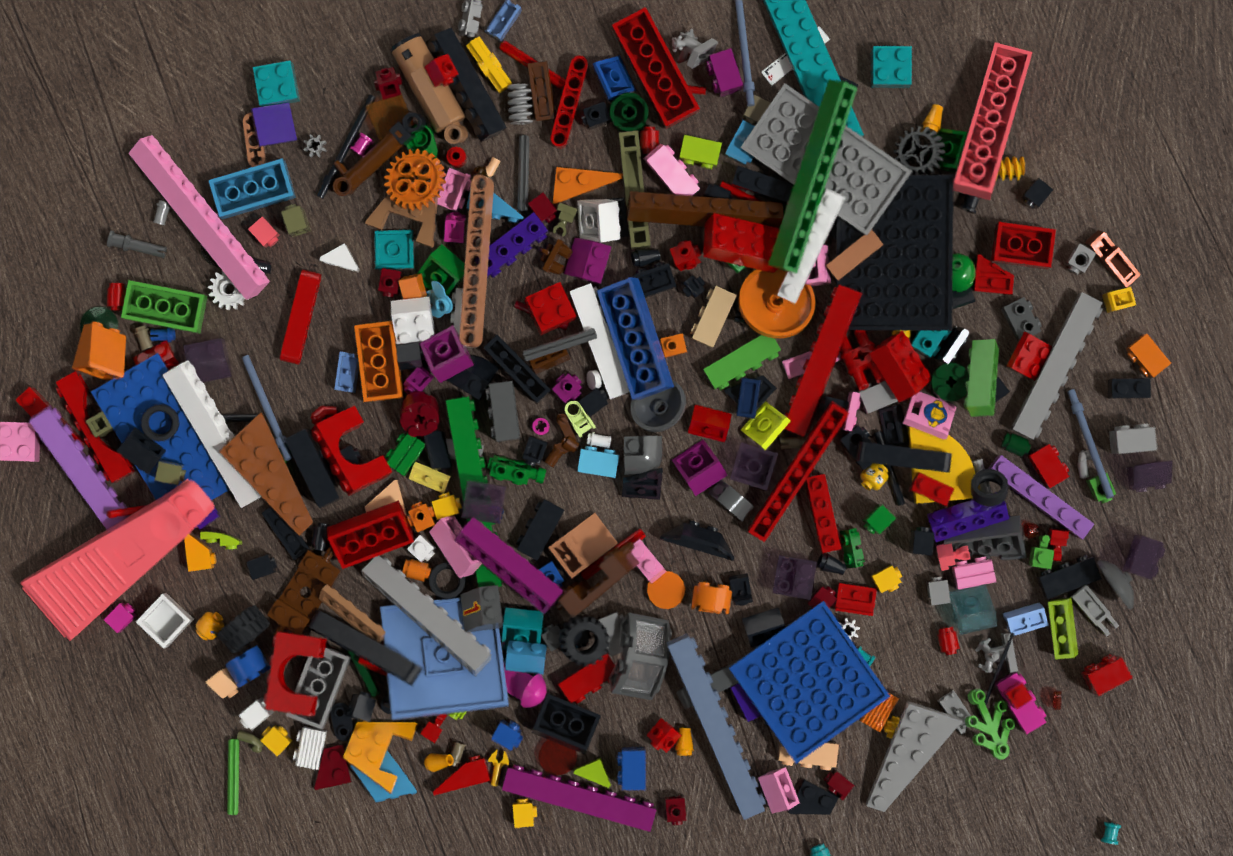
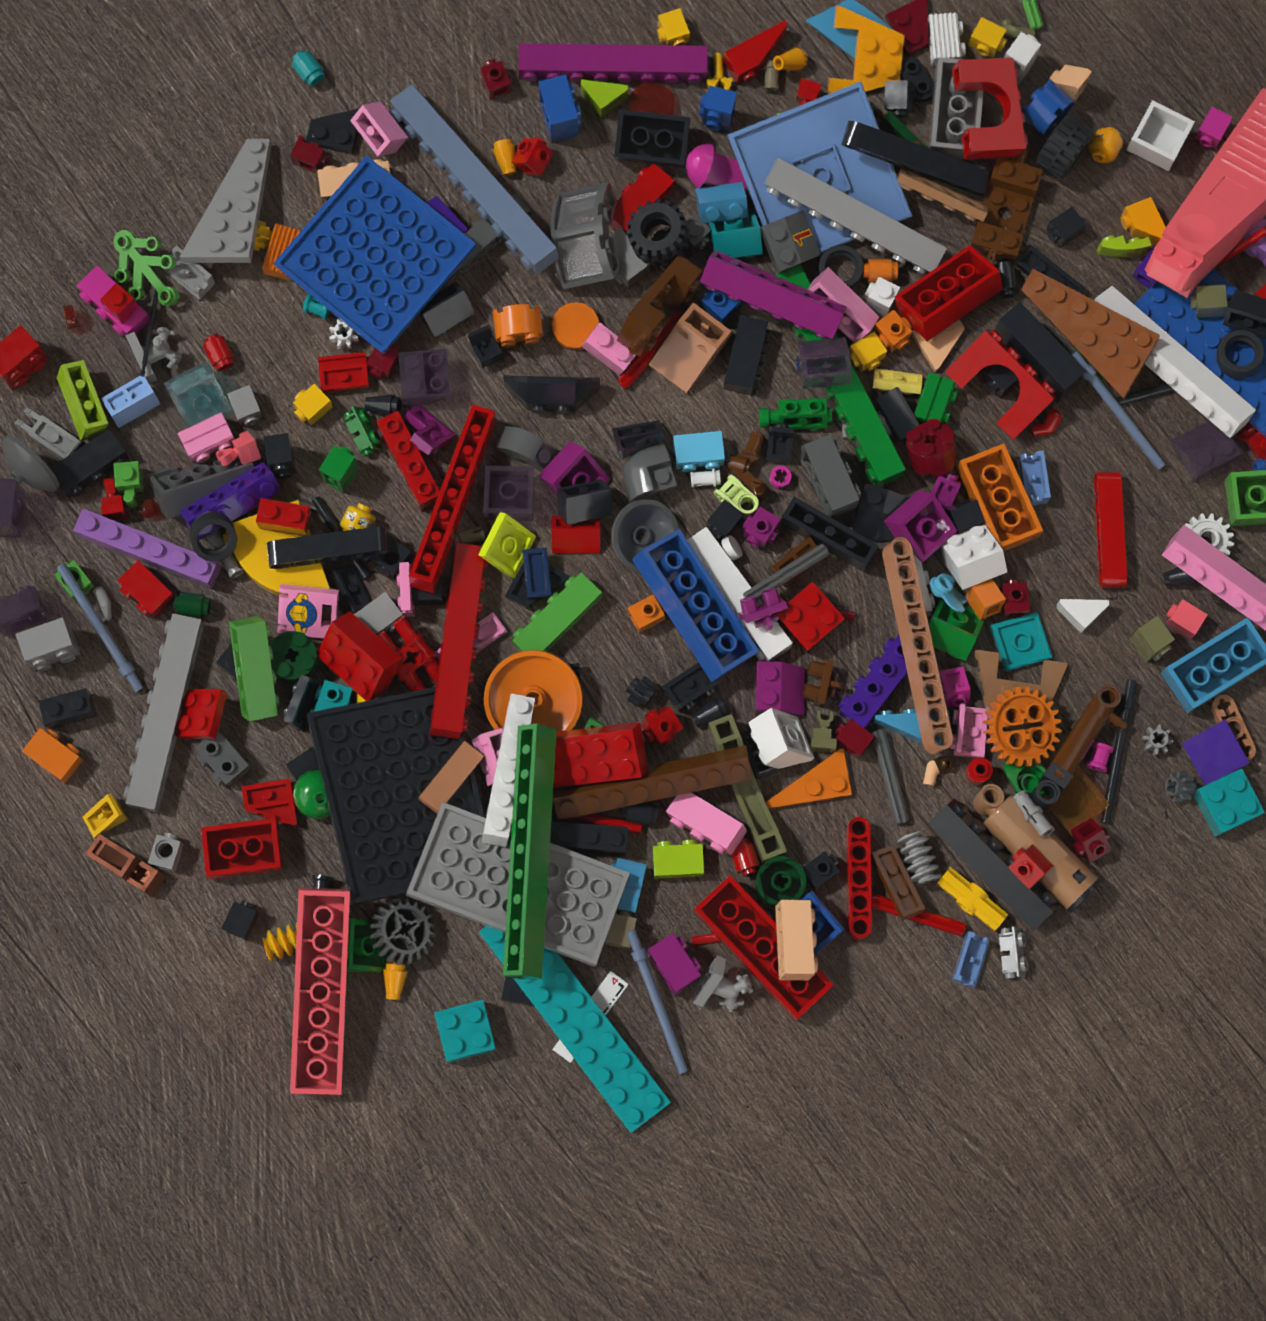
camera: 160 degrees right, 10 degrees down
(308, 106) = (1180, 786): none -> dark grey gear
(427, 109) = (1033, 814): none -> light grey pin
(586, 317) = (771, 605): none -> magenta hips
(631, 62) = (795, 940): none -> light nougat brick
(697, 443) = (584, 502): none -> black brick
(713, 316) = (606, 661): tan brick -> none
(798, 533) = (431, 432): none -> magenta plate

